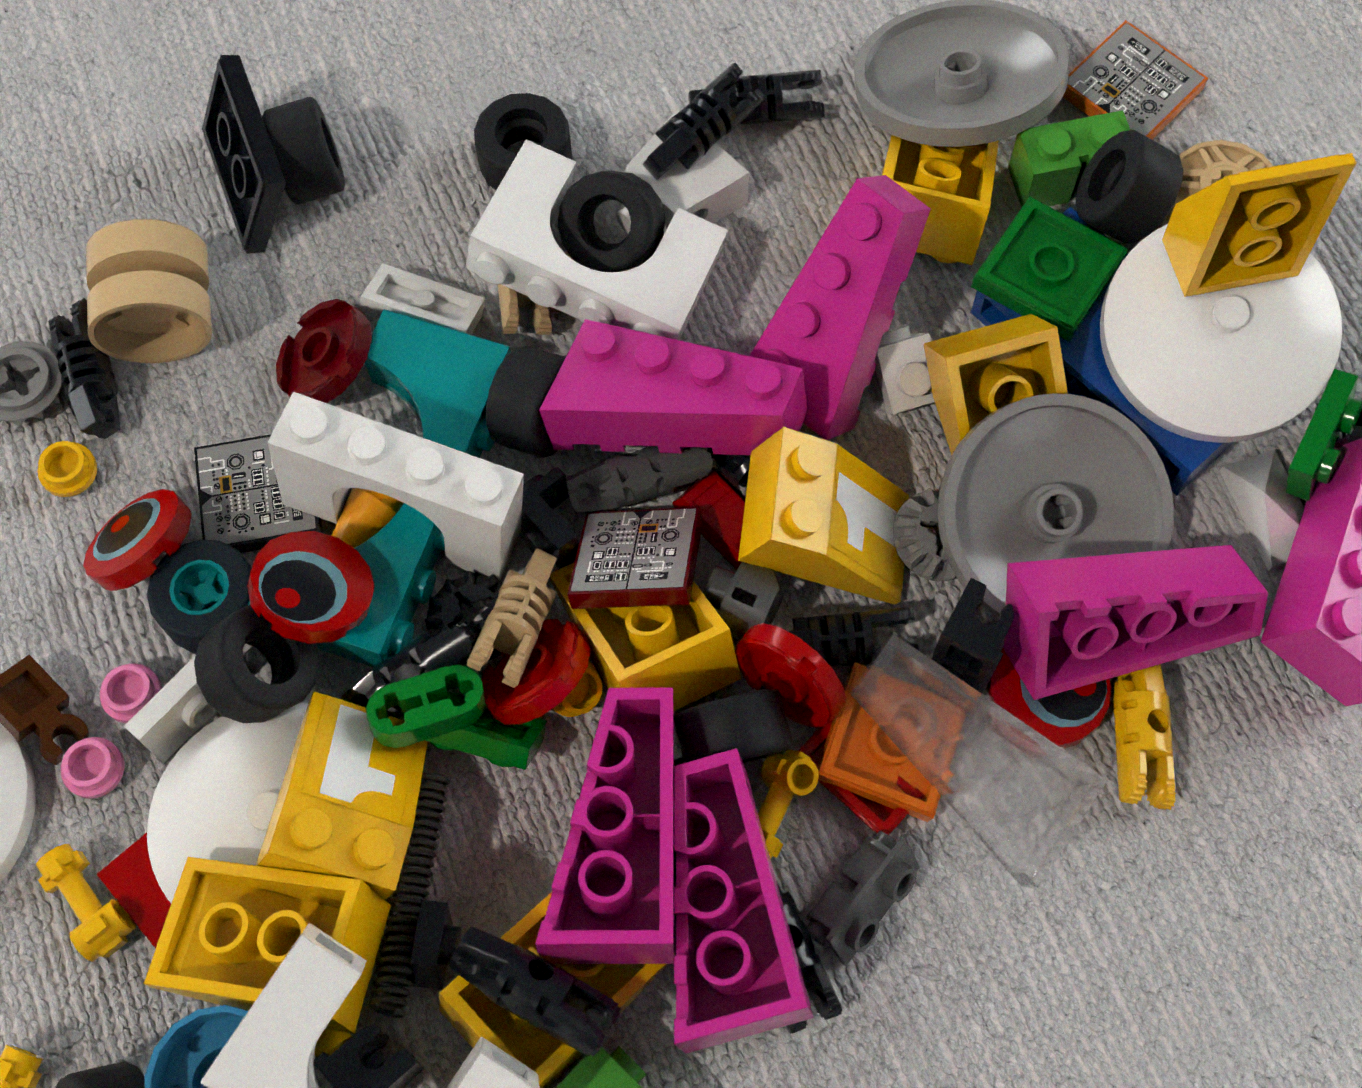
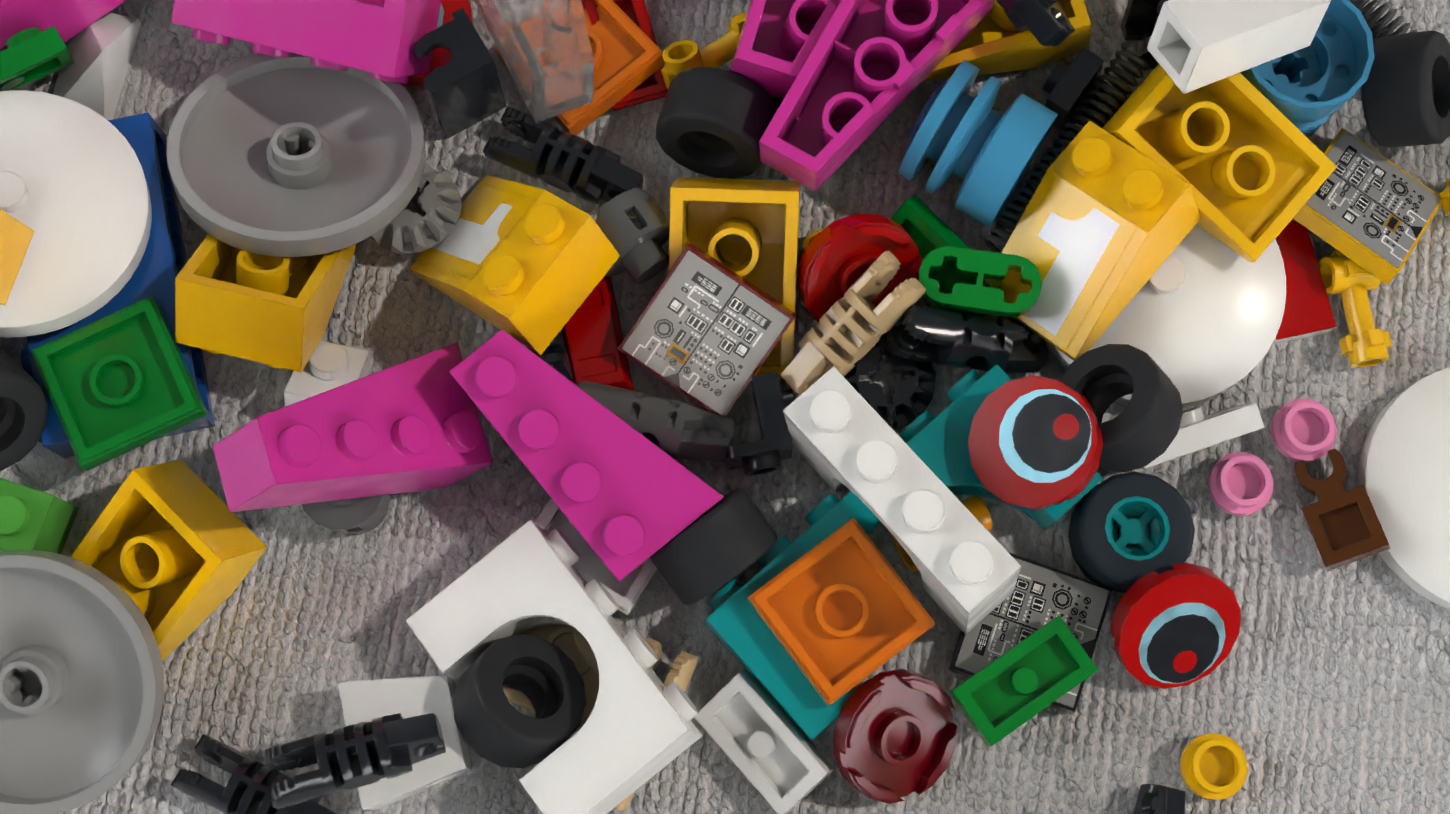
camera: 155 degrees left, 10 degrees up
(98, 999) = (1369, 208): none -> tile
(239, 436) = (1023, 681): none -> green plate
(412, 386) = (841, 611): none -> orange tile
(490, 835) = (976, 142): none -> dark azure wheel
(786, 663) = (638, 134): red tile -> none

